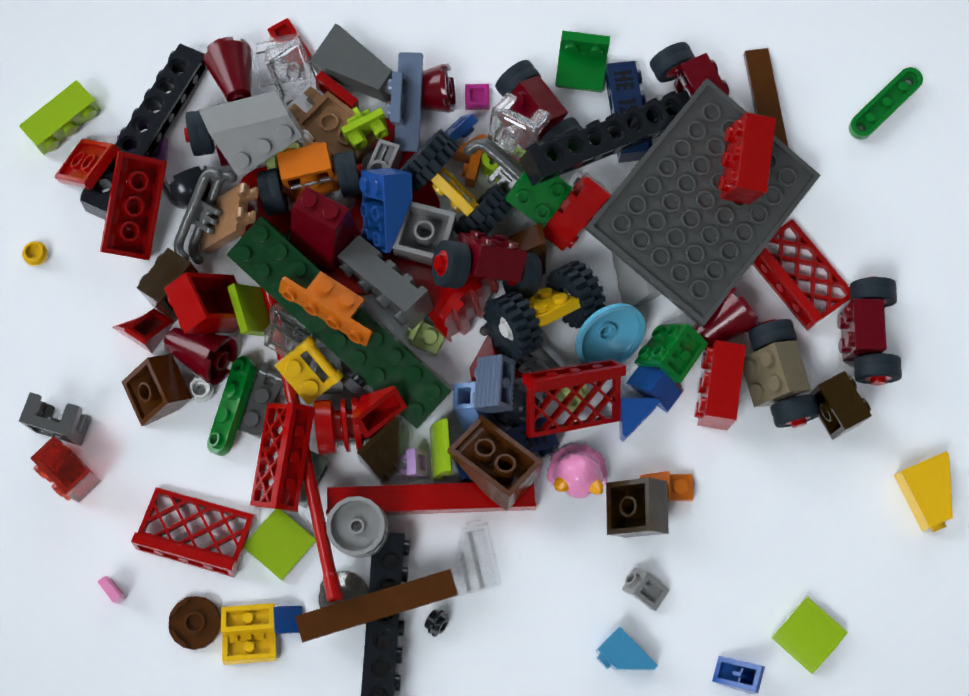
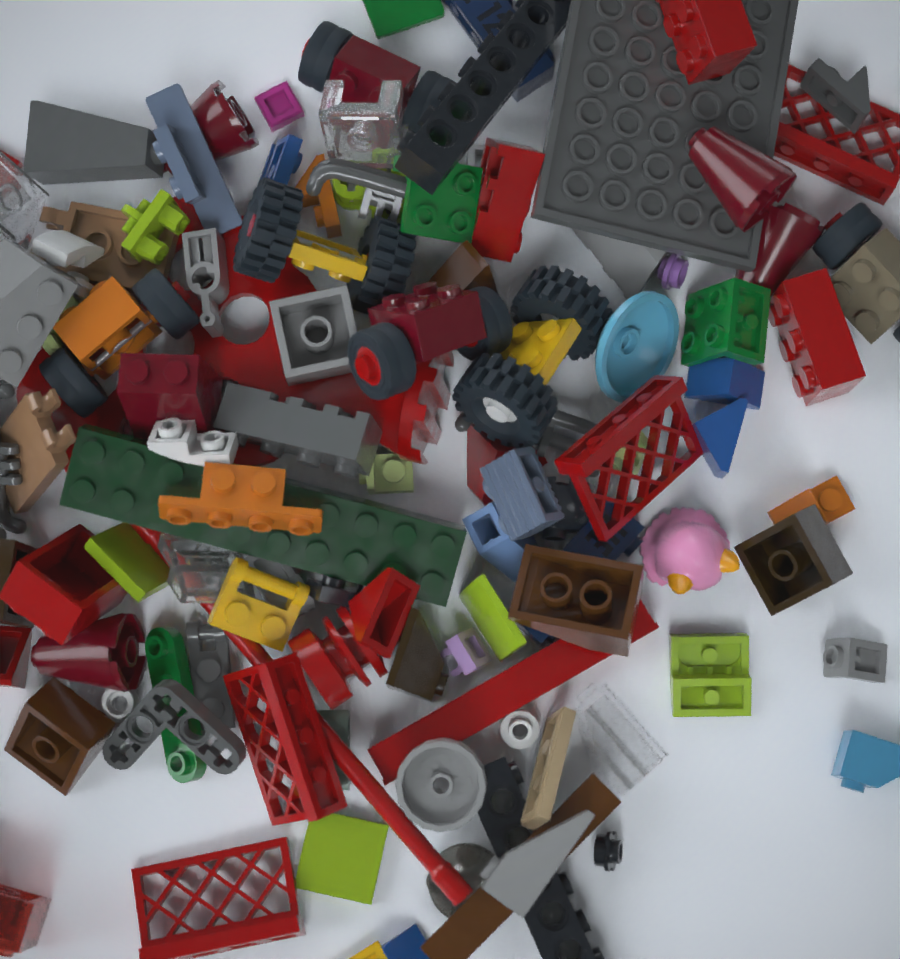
camera: 25 degrees left, 5 degrees up
(221, 408) = (165, 716): none -> dark grey beam
(308, 114) = (66, 249): none -> white slope
(314, 255) = (181, 442): none -> white slope
(325, 83) = (62, 192): red tile -> none
(381, 601) = (527, 868): none -> light grey slope
(384, 205) = (242, 323): blue slope -> none
(426, 553) = (548, 768): none -> tan tile
(431, 524) = (519, 717): none -> white plate
(553, 552) = (710, 675): none -> lime slope
(657, 305) = (673, 271): none -> medium lavender plate
(720, 266) = (739, 175): none -> dark red cone
(813, 255) = (843, 99): none -> dark grey slope

